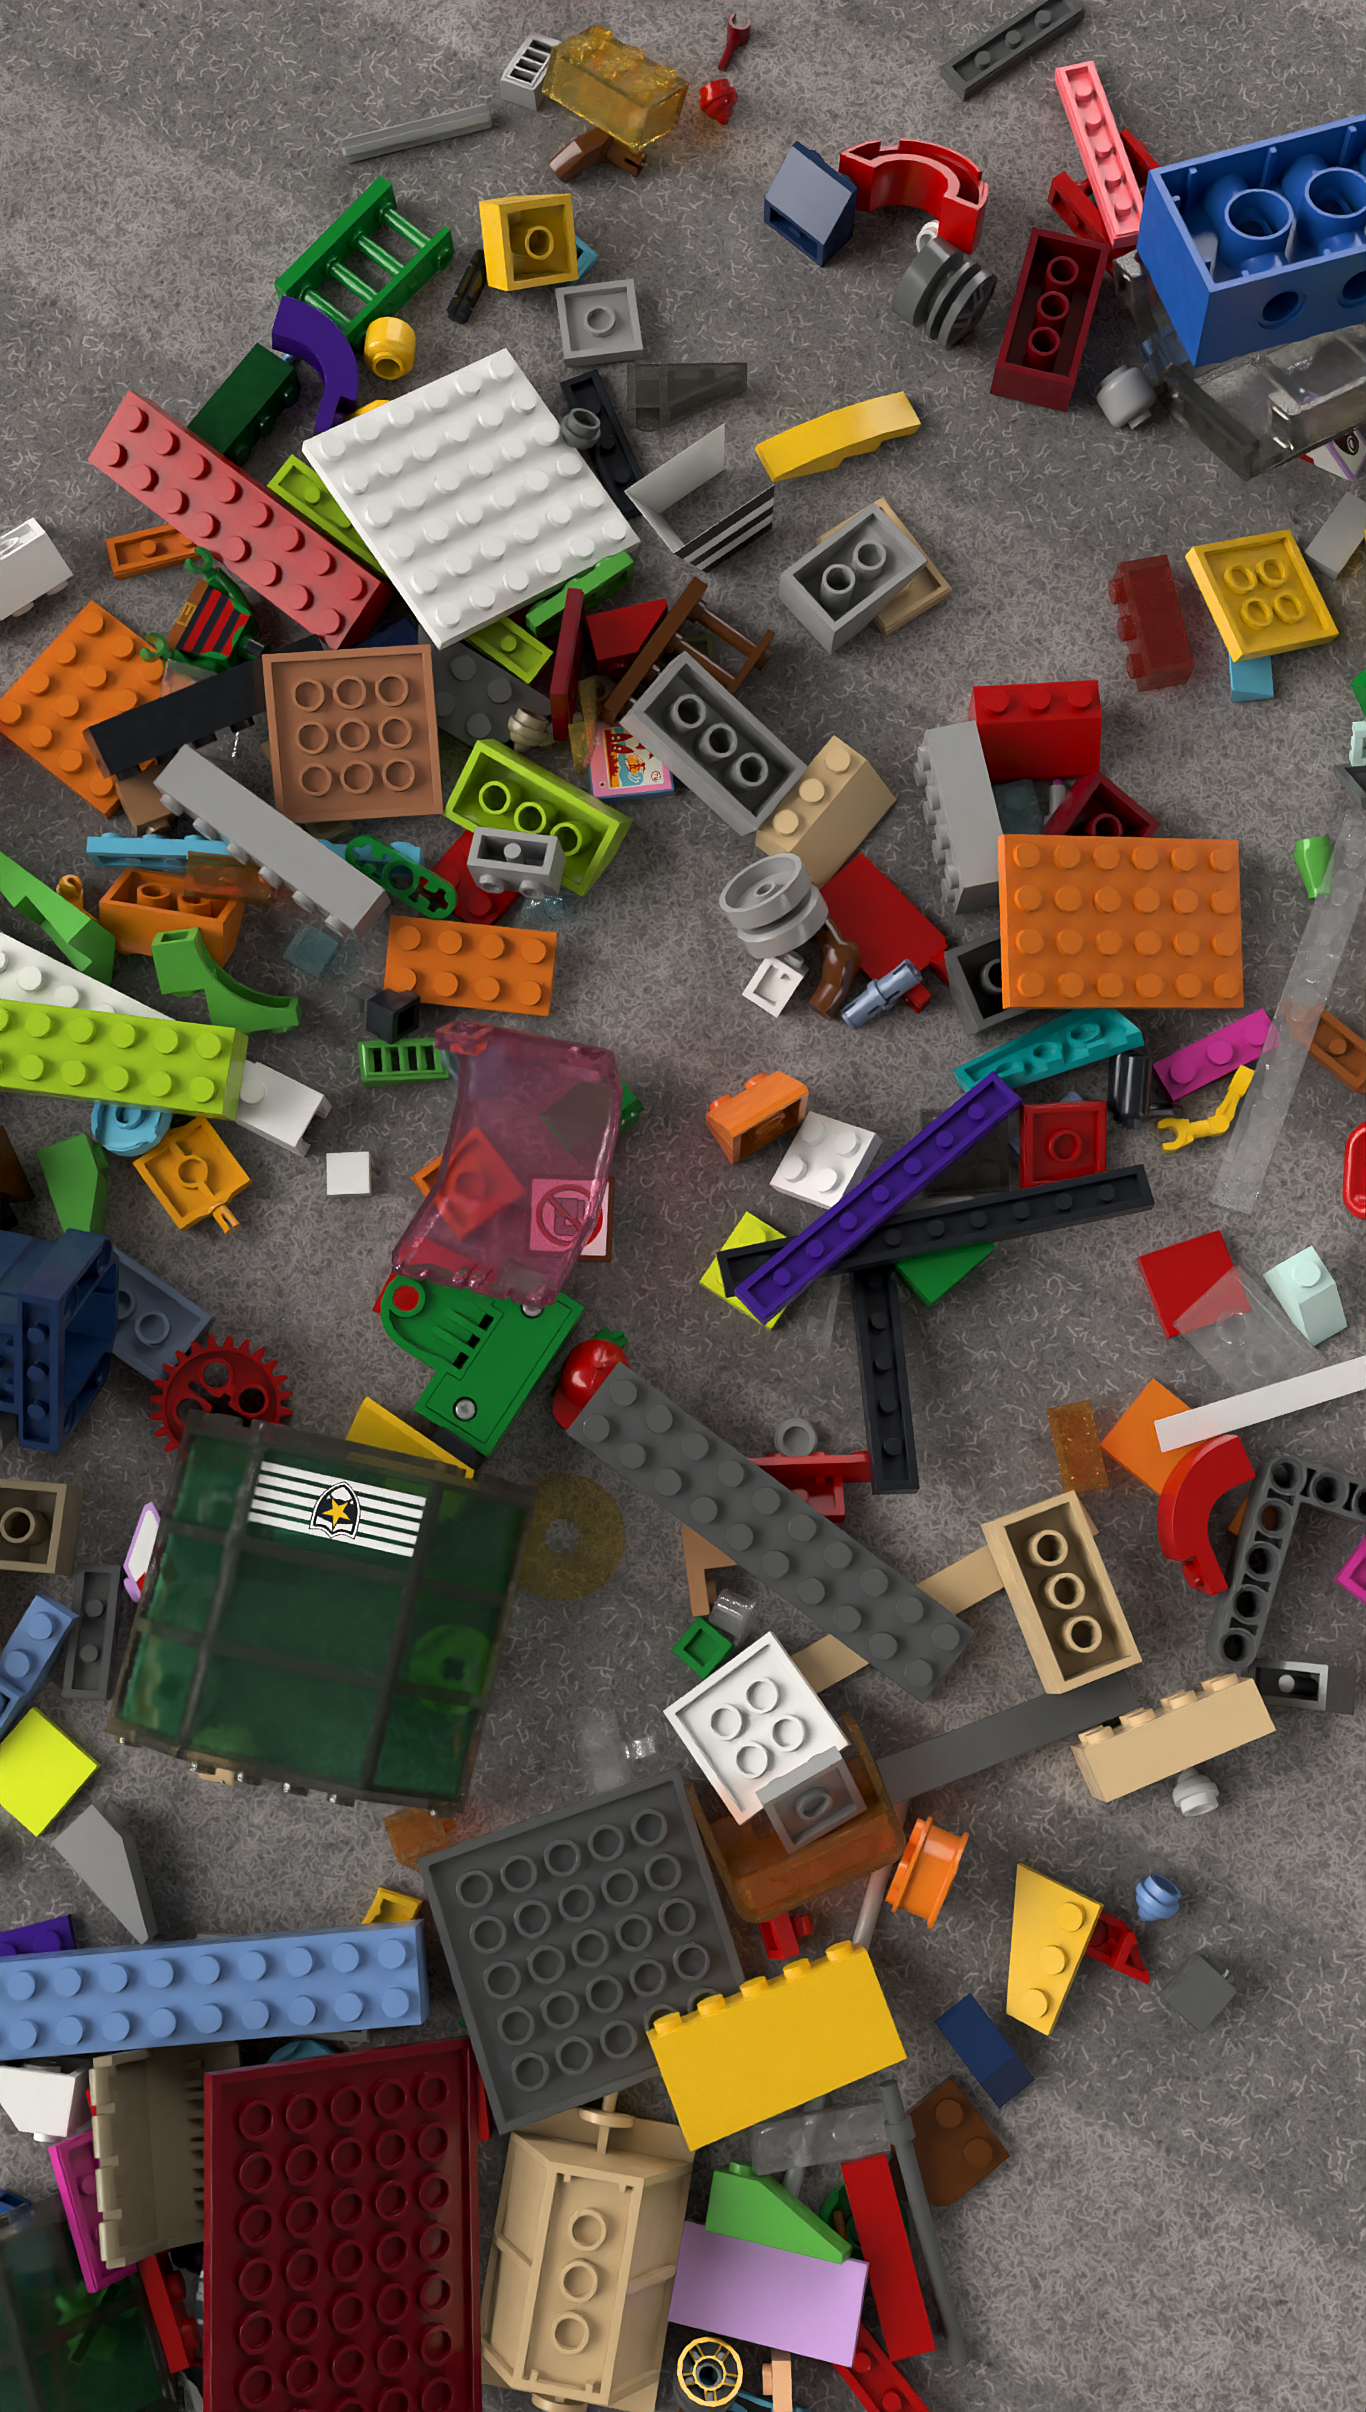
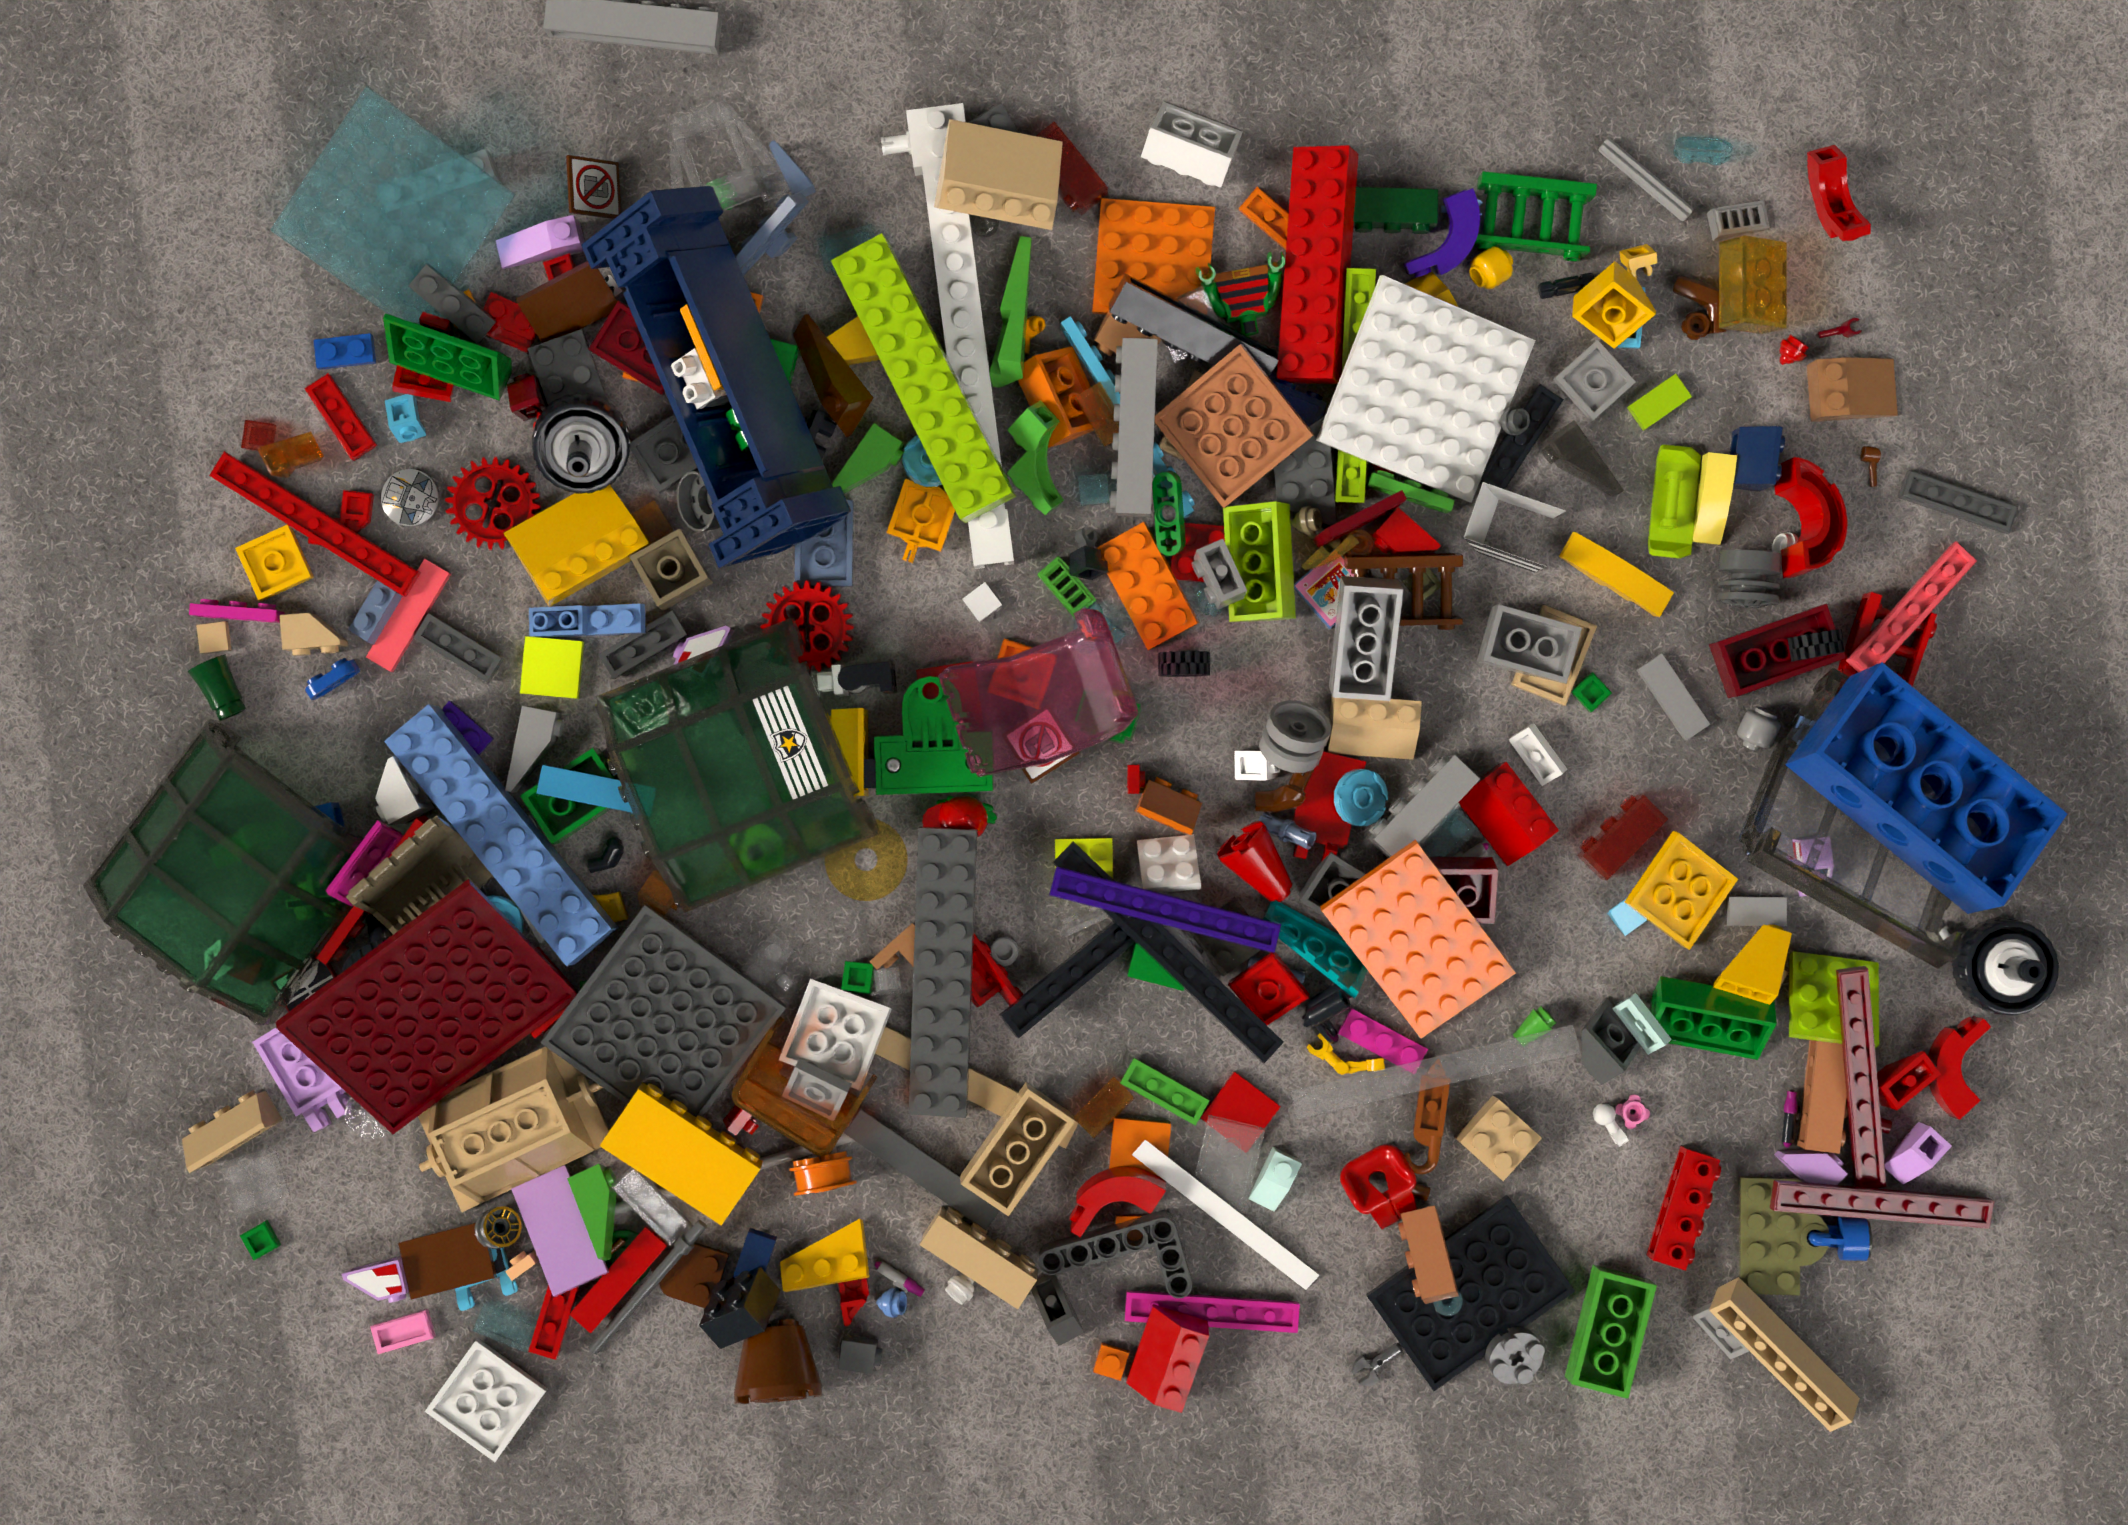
camera: 50 degrees right, 10 degrees up
(209, 1835) = (581, 788): none -> dark azure tile
(215, 1856) = (564, 817): none -> green brick
(329, 1381) = (858, 678): none -> black hips
(329, 1868) = (610, 857): none -> black arm
(436, 46) = (1701, 149): none -> clear light blue plate
(499, 185) = (1639, 257): none -> yellow tile
(594, 980) = (1184, 664): none -> black tyre
(617, 172) = (1695, 318): none -> reddish brown plate
(674, 273) = (1659, 402): none -> lime tile
(692, 1134) = (1135, 779): none -> red plate
(797, 328) = (1674, 501): none -> lime piece
(804, 71) = (1851, 388): none -> medium nougat slope
(824, 280) = (1713, 497): none -> light yellow slope
(895, 1054) = (1257, 861): none -> red cone
(897, 94) = (1871, 455): none -> reddish brown hand
(900, 884) = (1360, 797): none -> medium azure tile
(956, 553) = (1591, 692): none -> green tile
(988, 654) = (1537, 754): none -> white plate
(1024, 469) = (1673, 697): none -> light grey tile
(1035, 2111) = (739, 1307): none -> black brick
(1075, 253) = (1816, 644): none -> black tyre
(1106, 1358) = (1164, 1091): none -> bright green plate
(1134, 1867) = (899, 1280): none -> light grey piece
(1143, 2115) = (777, 1366): none -> reddish brown cone

